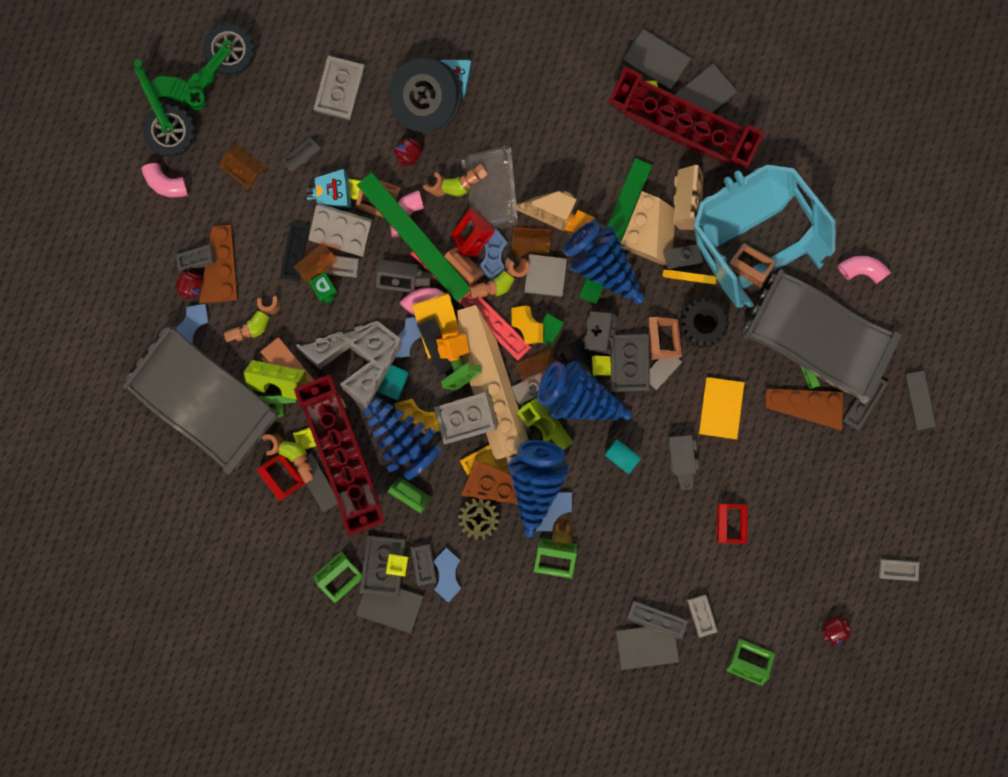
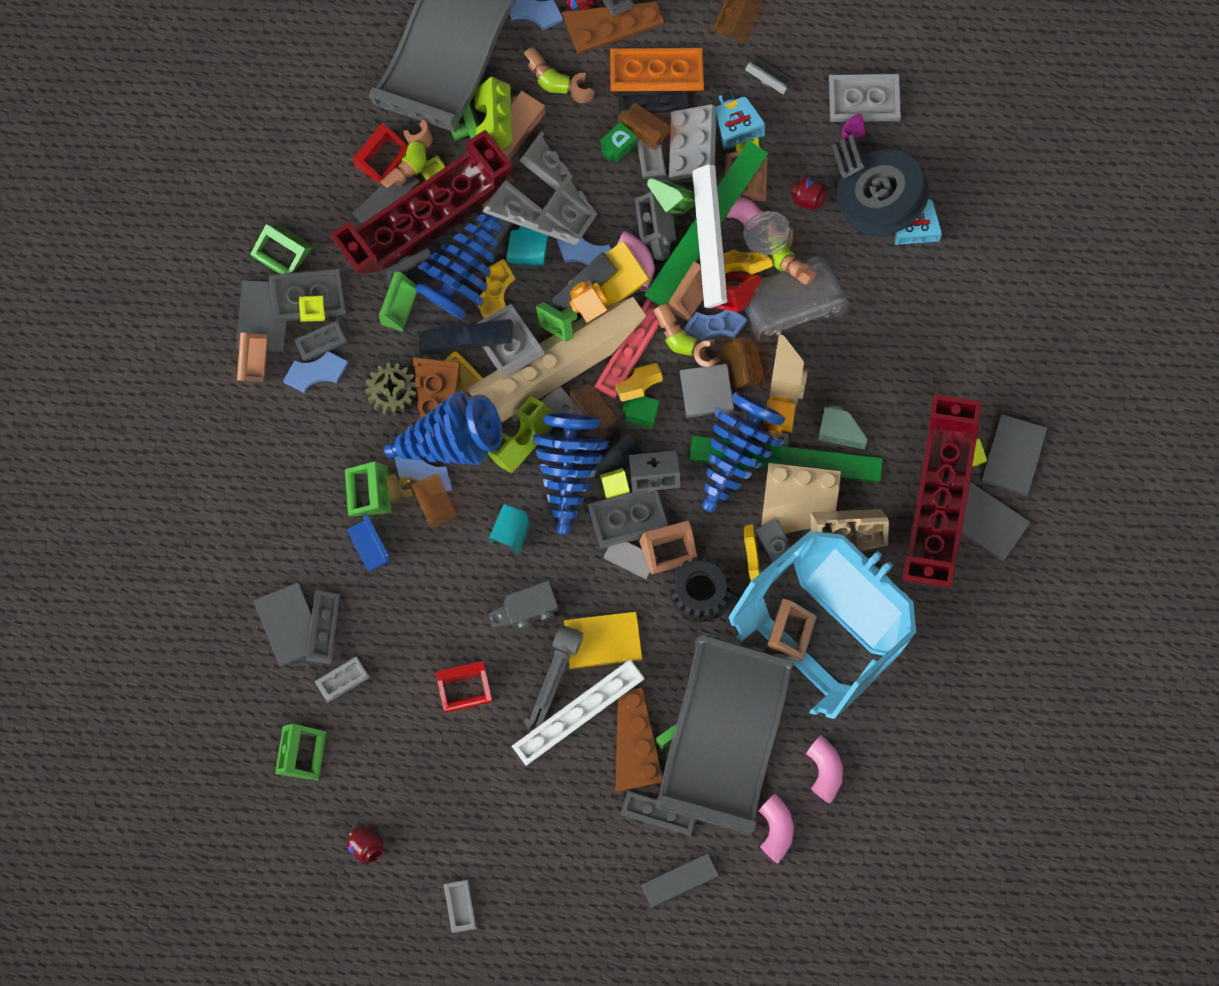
camera: 80 degrees right, 10 degrees down
(269, 241) = (656, 69): none -> orange tile
(363, 103) = (853, 126): none -> magenta tile
(374, 114) = (844, 147): none -> dark grey tile
(380, 479) = (410, 264): none -> dark grey plate
(381, 257) = (672, 196): none -> tile
(425, 622) = (252, 357): none -> nougat tile
(428, 236) = (709, 236): none -> white tile
(436, 192) = (767, 232): none -> clear tile
(454, 211) = (748, 262): none -> yellow tile
(454, 449) = (466, 337): none -> black tile
(579, 509) = (433, 500): none -> clear orange panel
(599, 568) = (368, 544): none -> blue panel
(603, 182) = (841, 428): none -> sand green slope
(722, 437) = (567, 642): none -> dark grey piece
(774, 441) = (578, 712): none -> white tile
(900, 314) = (780, 826): none -> bright pink cylinder

